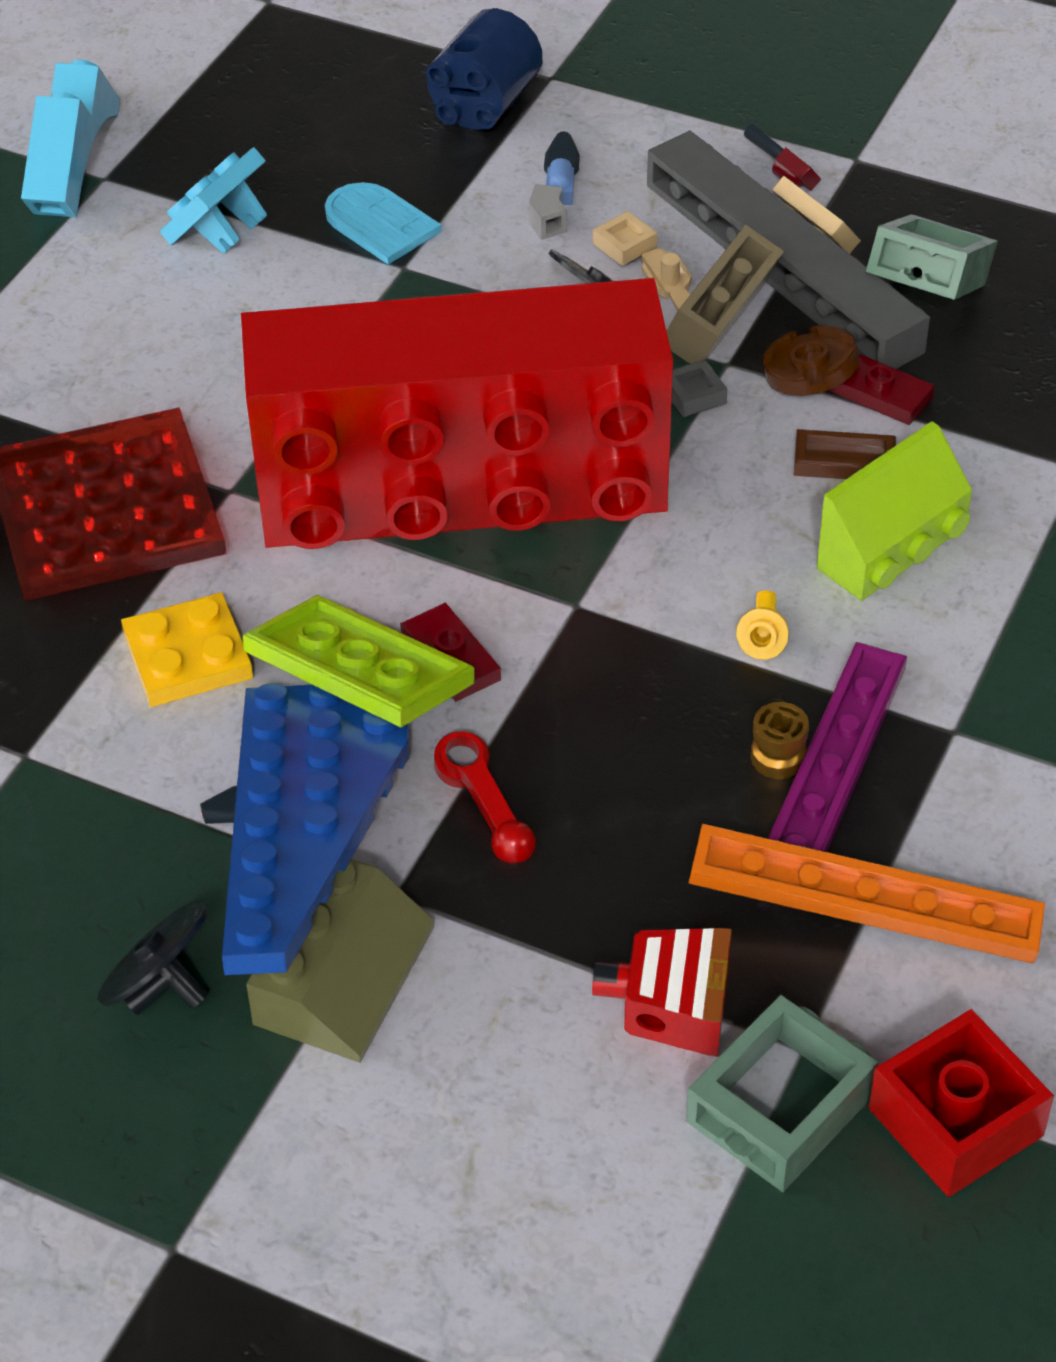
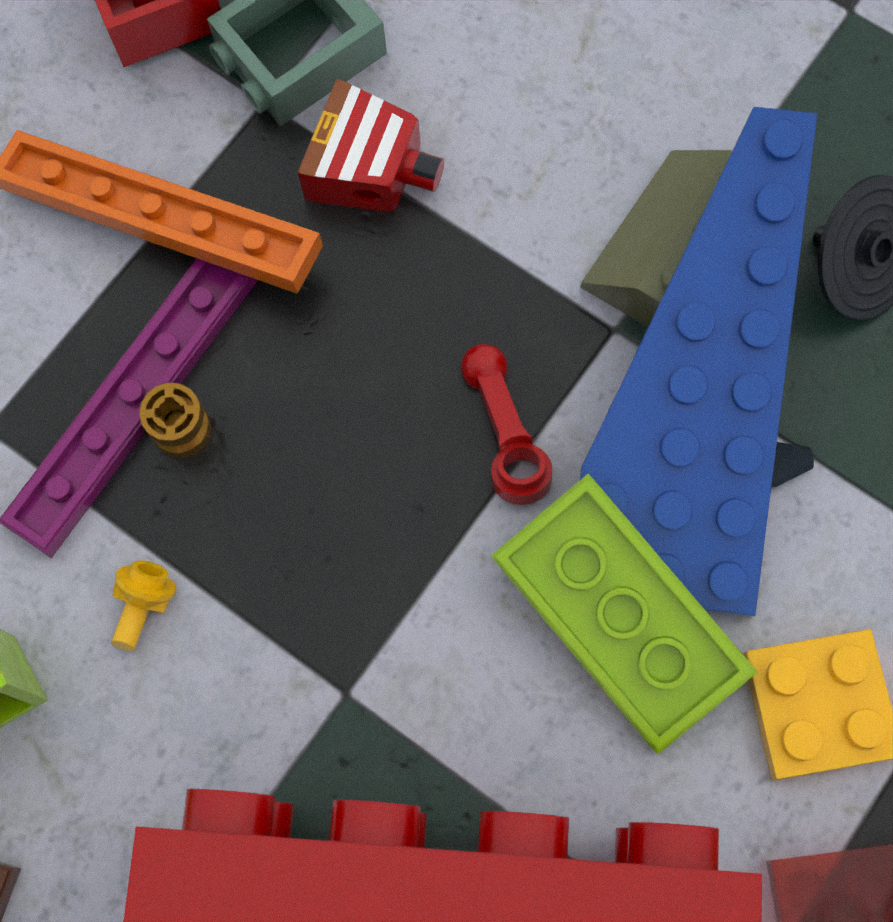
camera: 165 degrees left, 25 degrees up
(446, 632) = (508, 639): dark red plate -> none

